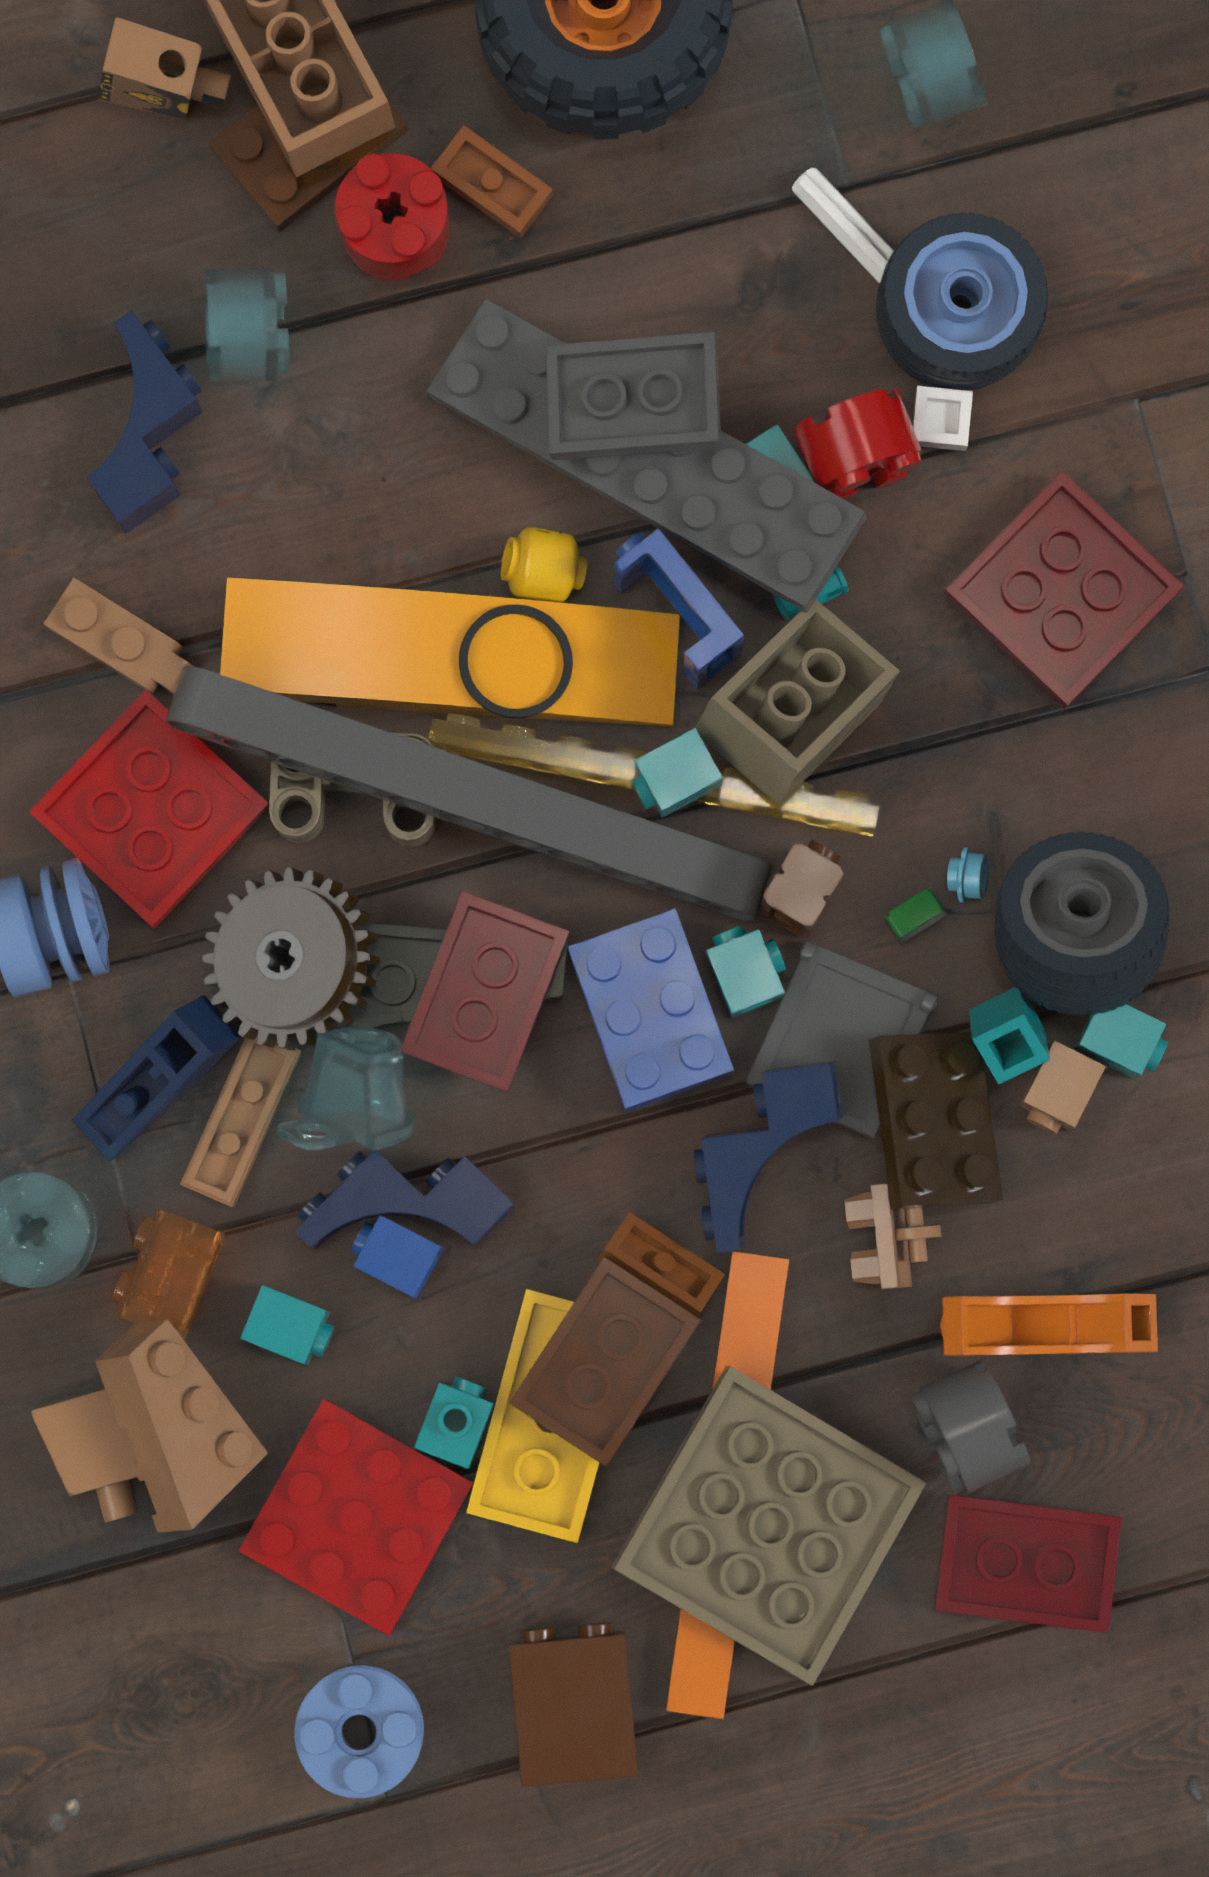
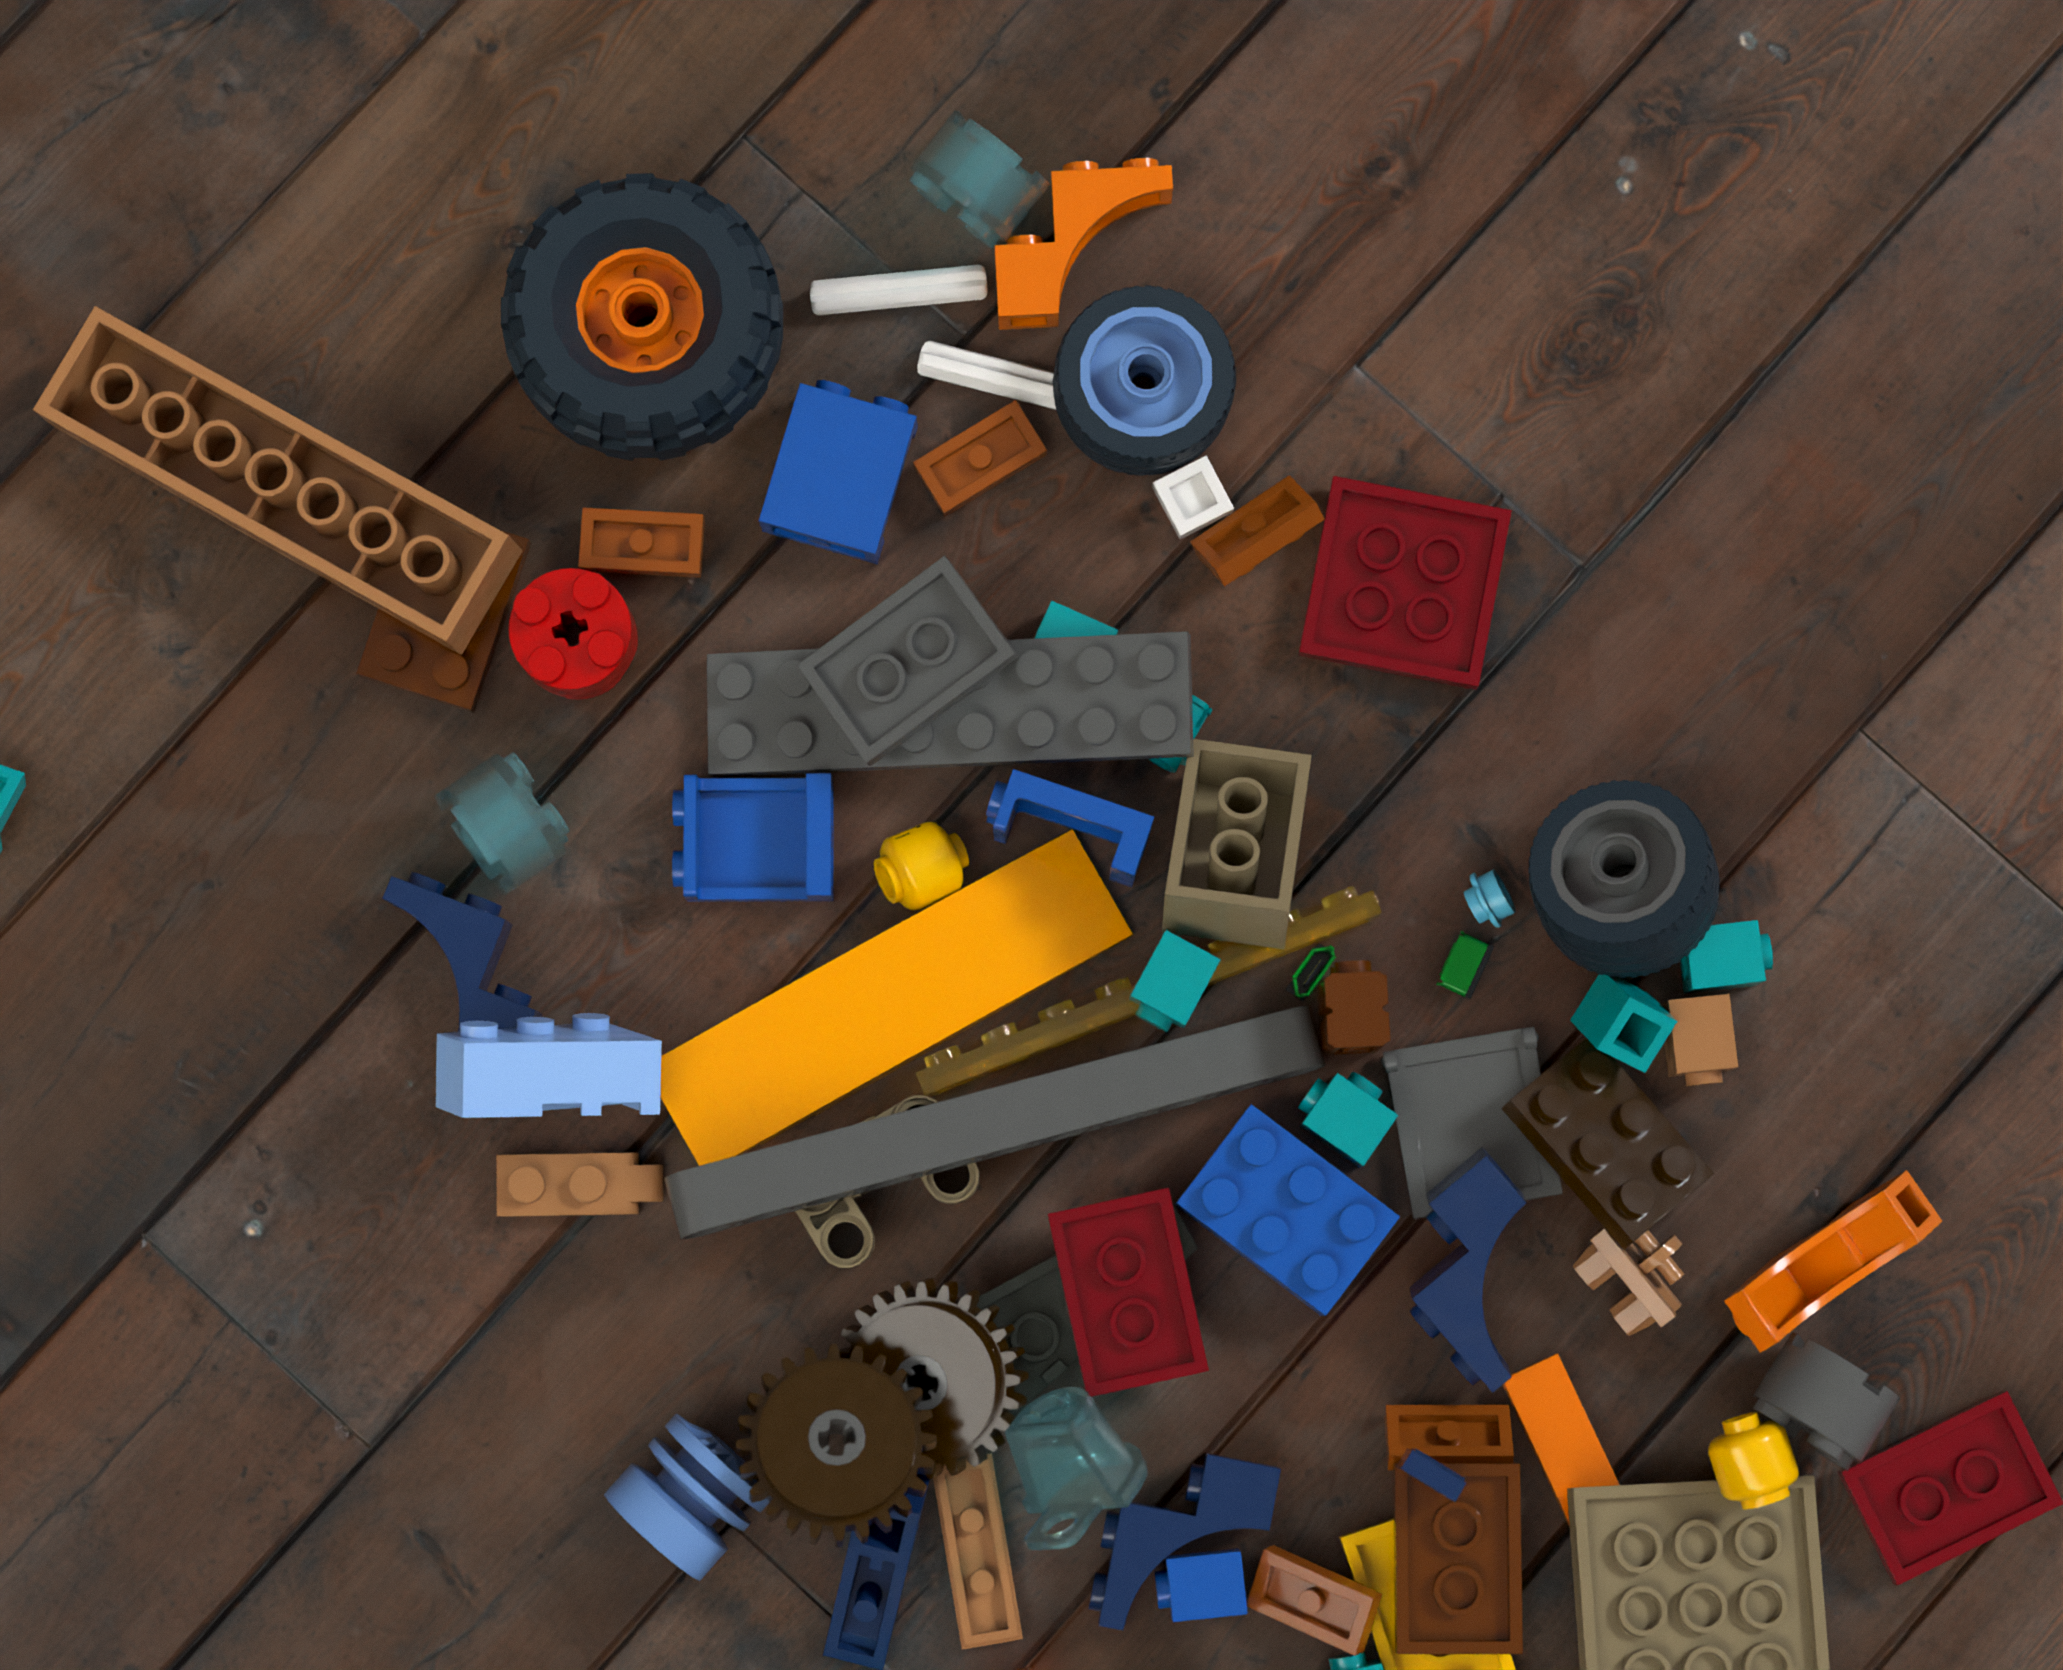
camera: 35 degrees left, 0 degrees up
(138, 68) = (250, 656): medium nougat torso -> none
(149, 809) = (703, 1319): red plate -> none
(150, 528) = (546, 1068): none -> light blue wedge
(203, 989) = (827, 1489): none -> dark brown gear
(429, 464) = (755, 839): none -> blue panel
(473, 1322) = (1314, 1600): none -> dark orange plate
(556, 630) = (995, 931): black piece -> none
(625, 1279) = (1432, 1473): none -> dark blue tile
(678, 221) = (838, 470): none -> blue panel
(784, 841) = (1311, 971): none -> piece
(796, 283) = (980, 458): none -> dark orange plate
(818, 114) = (898, 289): none -> white axle
(860, 443) = (1136, 569): red brick -> none
(884, 1436) = (1753, 1461): none -> yellow head
(975, 476) = (1257, 530): none -> dark orange plate
(1005, 139) = (1083, 204): none -> orange arch

